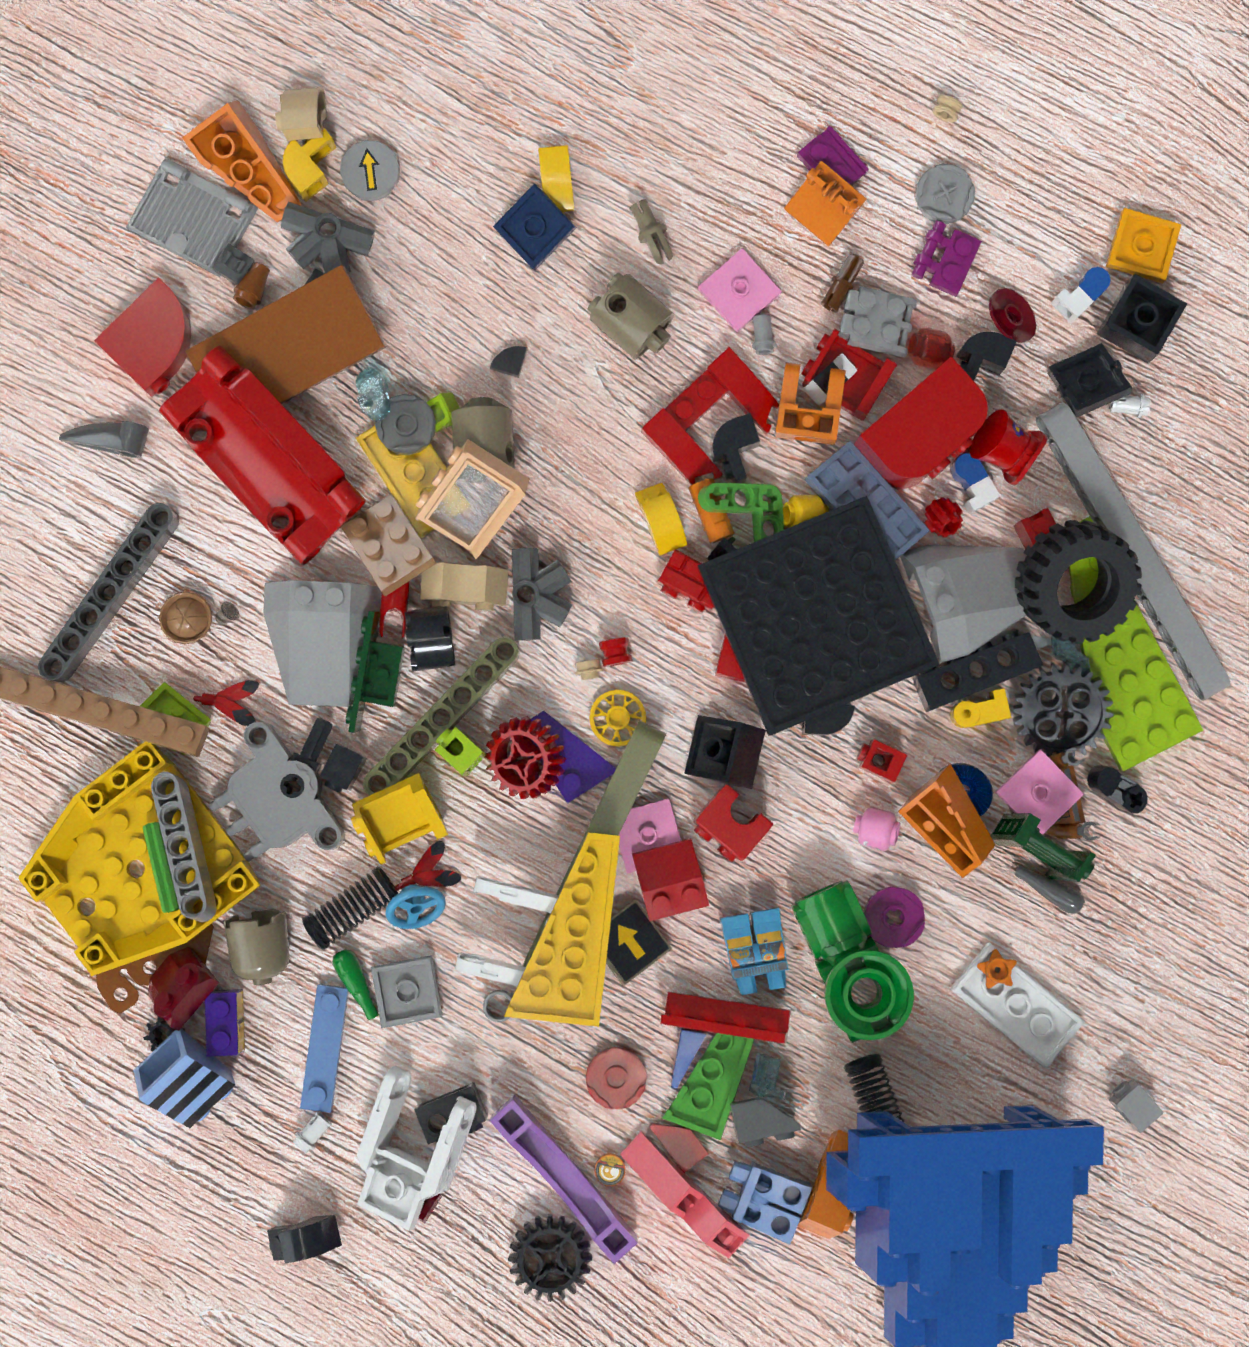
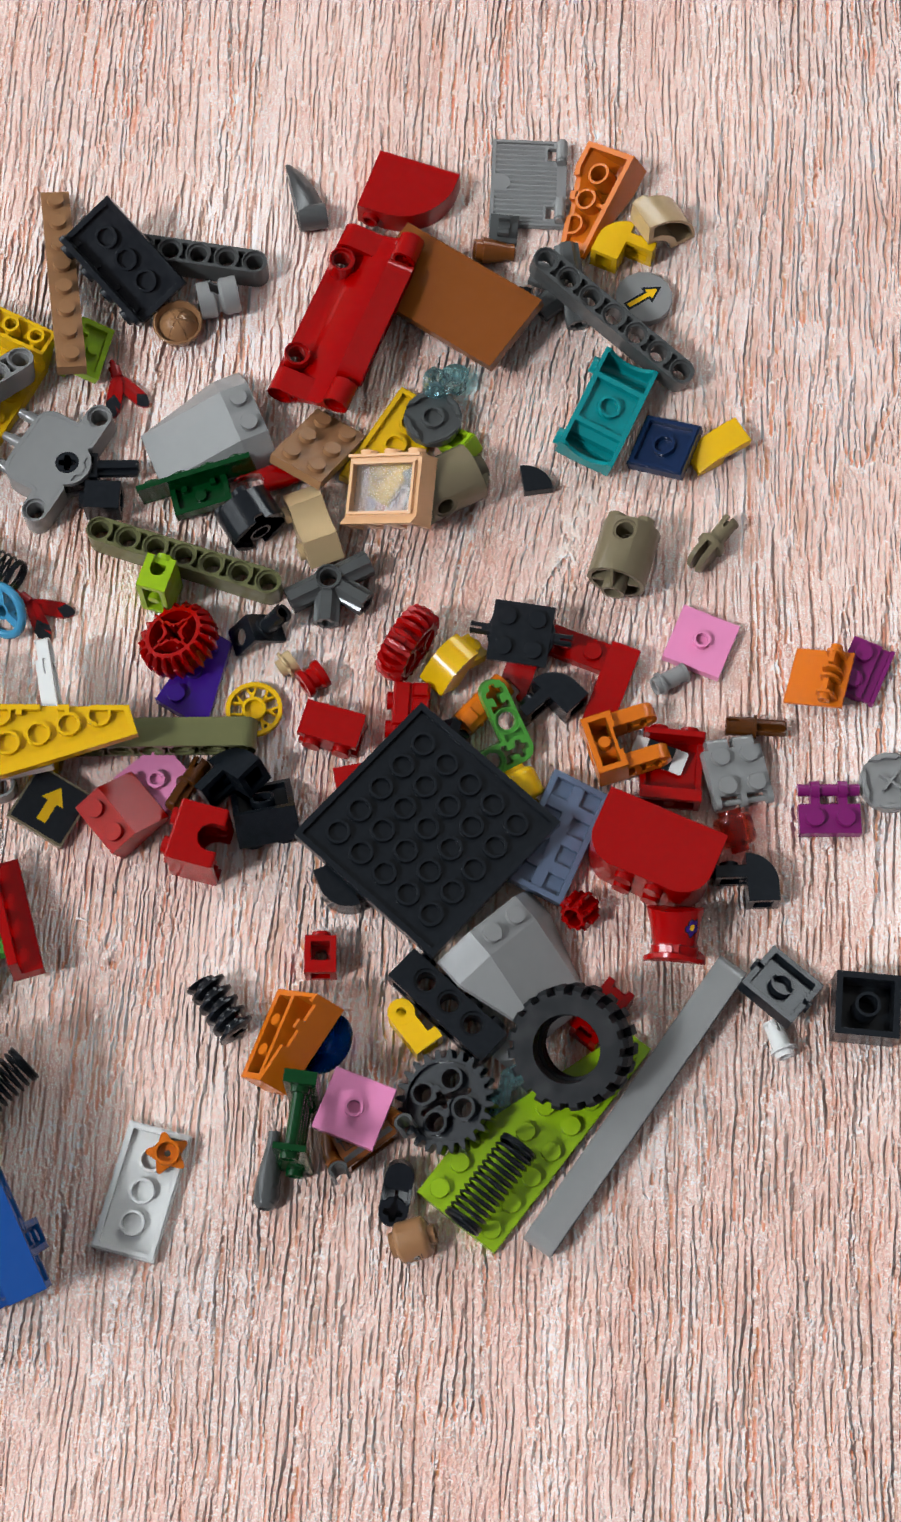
camera: 70 degrees right, 15 degrees down
(100, 644) = (122, 262): none -> black bracket
(179, 556) = (218, 297): none -> light grey wheel
(227, 613) = (198, 354): clear smoke piece -> none
(381, 222) = (608, 306): none -> dark grey beam
(397, 816) = (77, 559): yellow panel -> none
(476, 262) = (605, 412): none -> teal piece
(545, 678) = (260, 629): none -> black bracket
(627, 551) = (407, 643): none -> red gear
(665, 445) = (521, 633): none -> black plate
(670, 810) = (186, 782): none -> reddish brown axle
(673, 656) = (332, 729): none -> red brick
(674, 763) = (231, 771): none -> black brick
(763, 956) = (92, 919): dark azure hips -> none
(839, 937) = (135, 983): green piece -> none
(877, 829) = (254, 980): bright pink head -> none
(889, 868) = (219, 1008): none -> black piece
(911, 915) = (184, 1052): magenta plate -> none
(975, 482) = (628, 928): leg -> none
(1012, 315) = (813, 893): dark red dish -> none
(1088, 291) = (861, 949): leg -> none
(1135, 1105) = (89, 1347): light grey brick -> none
(1164, 793) = (412, 1239): none -> medium nougat head
(1186, 737) = (516, 1148): none -> black piece

